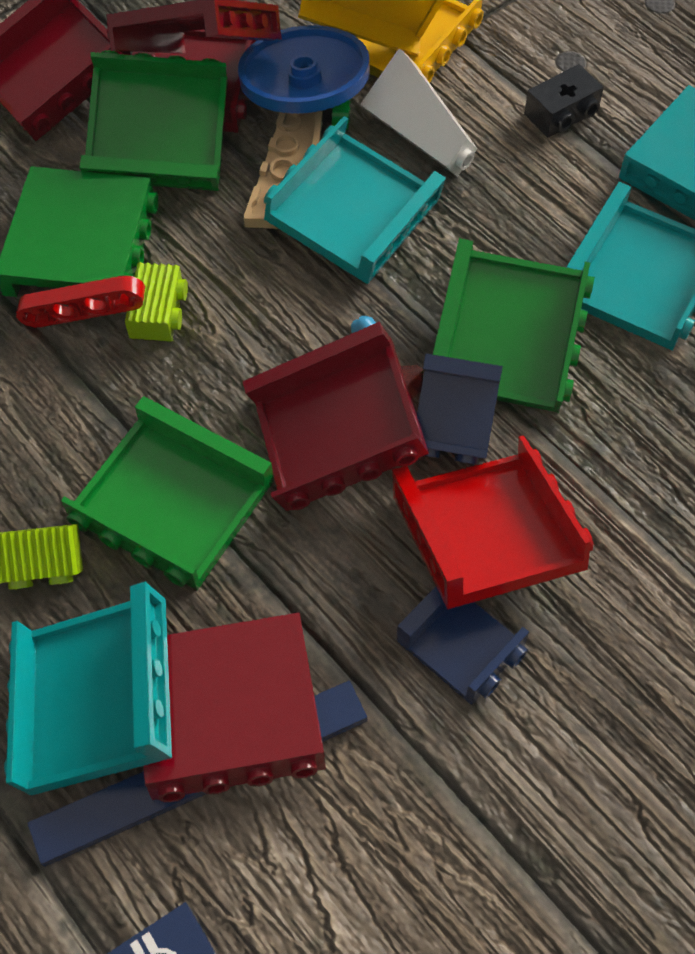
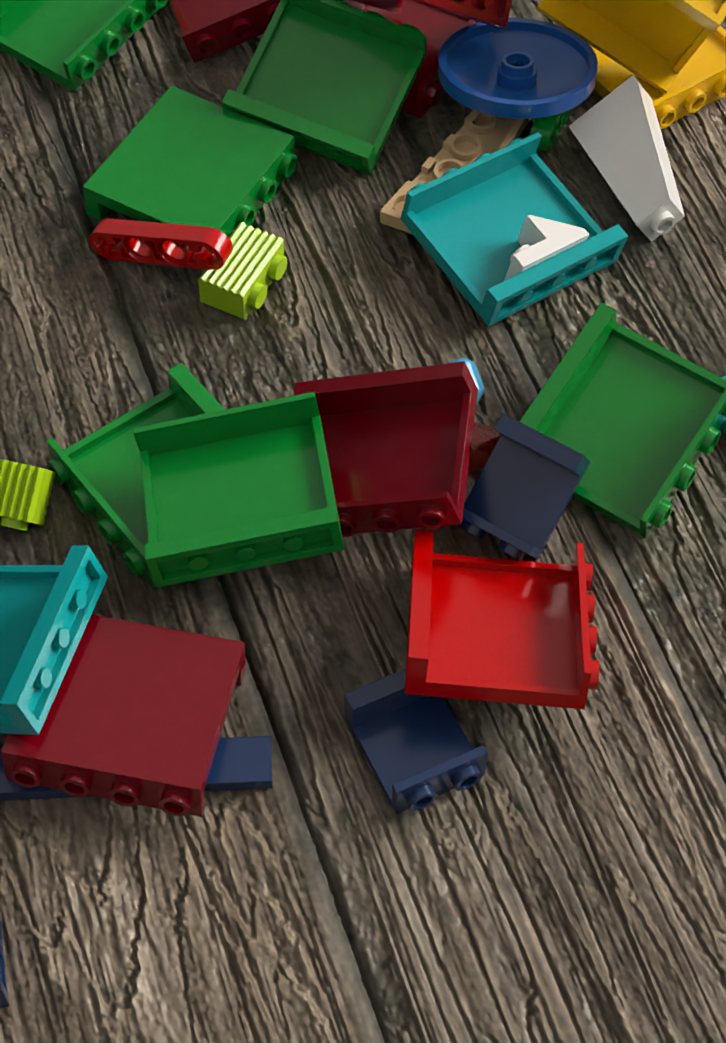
camera: 20 degrees right, 5 degrees down
(240, 489) = (237, 490): none -> green panel
(383, 204) = (541, 241): none -> white slope

